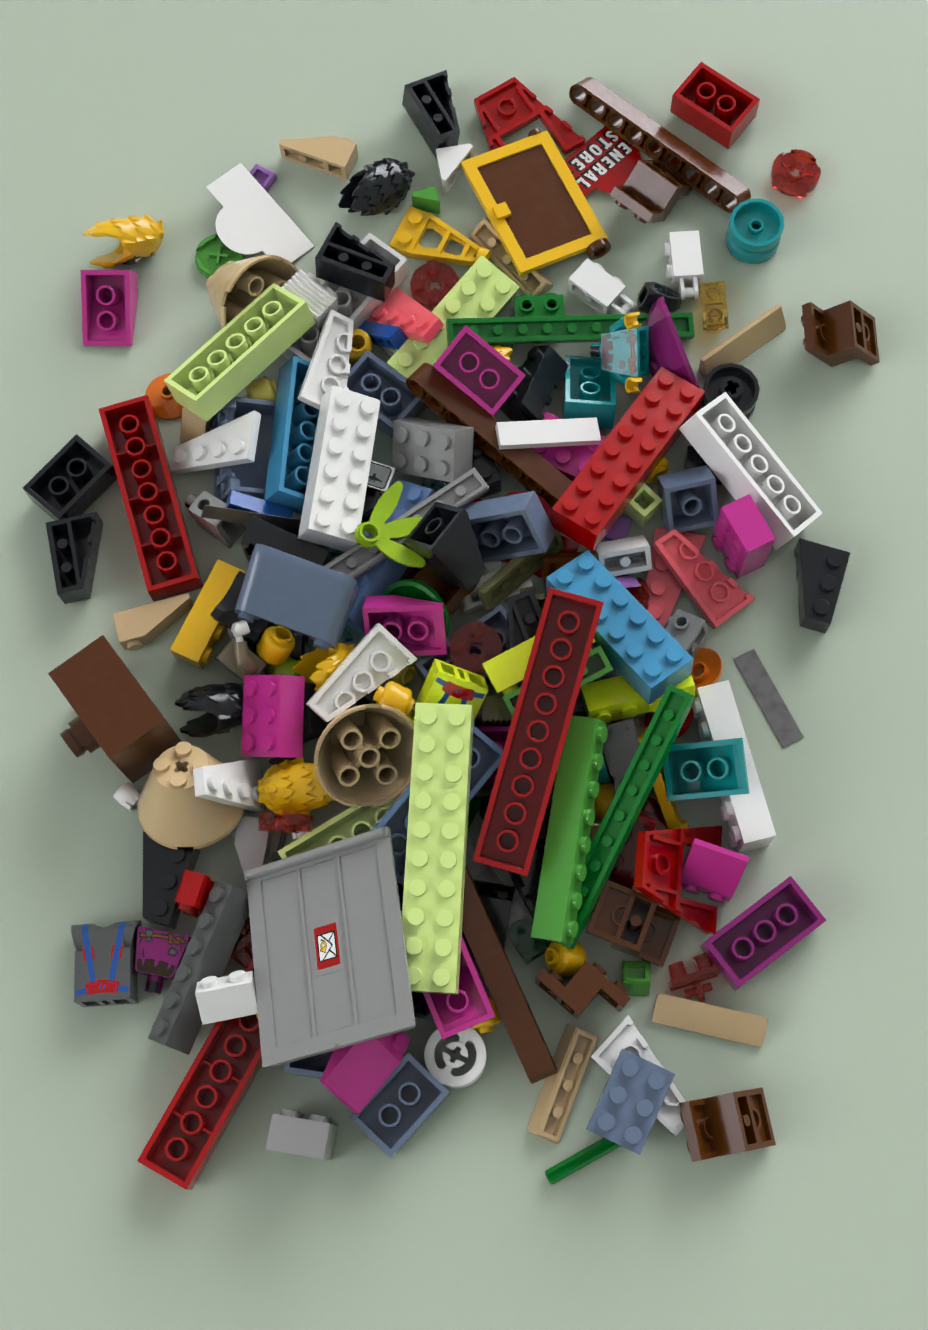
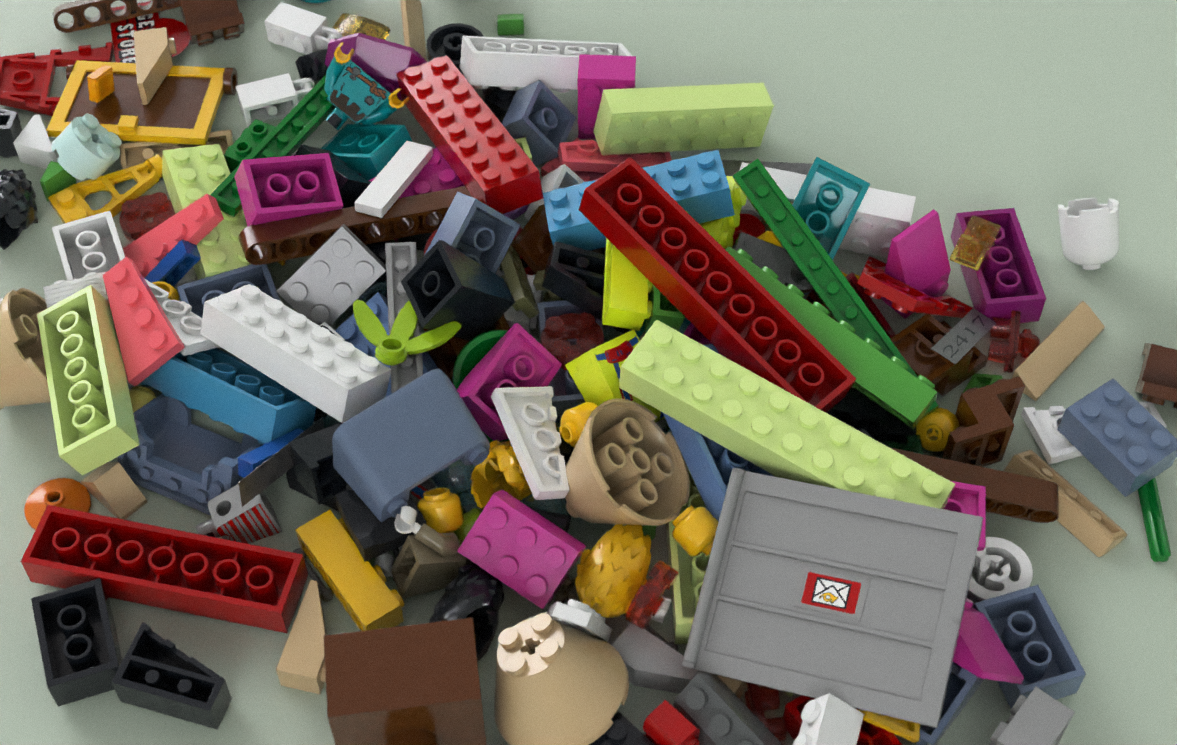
camera: 65 degrees left, 20 degrees down
(221, 447) = (170, 462): white wing -> none
(301, 356) = (140, 323): none -> coral wing
(350, 823) = (695, 530): none -> yellow head
(354, 266) = (84, 243): black wedge -> none
(458, 201) = (86, 148): none -> light aqua brick
(523, 166) = (100, 83): none -> light orange tile
(570, 184) = (152, 60): none -> tan slope
(653, 938) = (963, 336): none -> flat silver sticker
(758, 609) = (682, 118): none -> yellowish green brick
(758, 905) = (975, 243): none -> clear yellow slope
(804, 411) = (510, 24): none -> bright green slope
(819, 582) = (675, 67): black wedge -> none
(844, 992) = (1089, 231): none -> white cylinder

